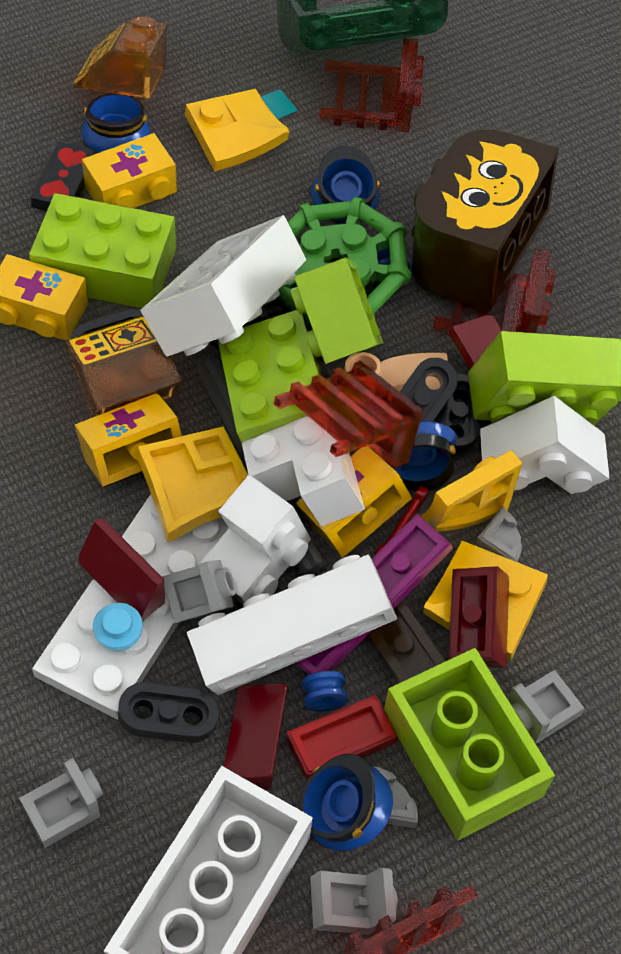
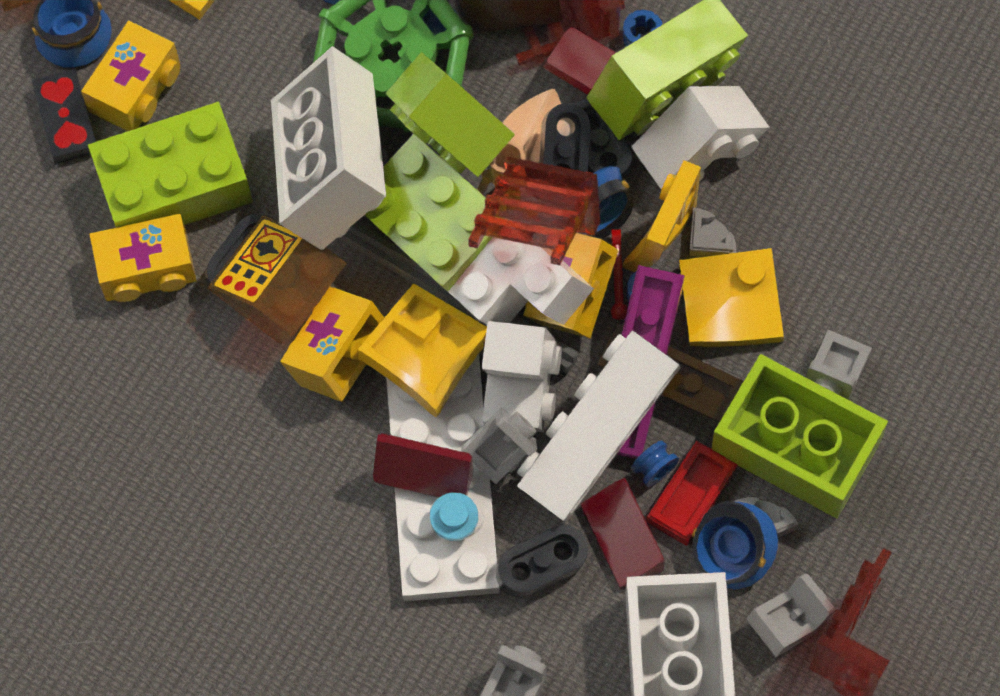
camera: 25 degrees left, 10 degrees up
(480, 614) = (739, 321): dark red slope -> none

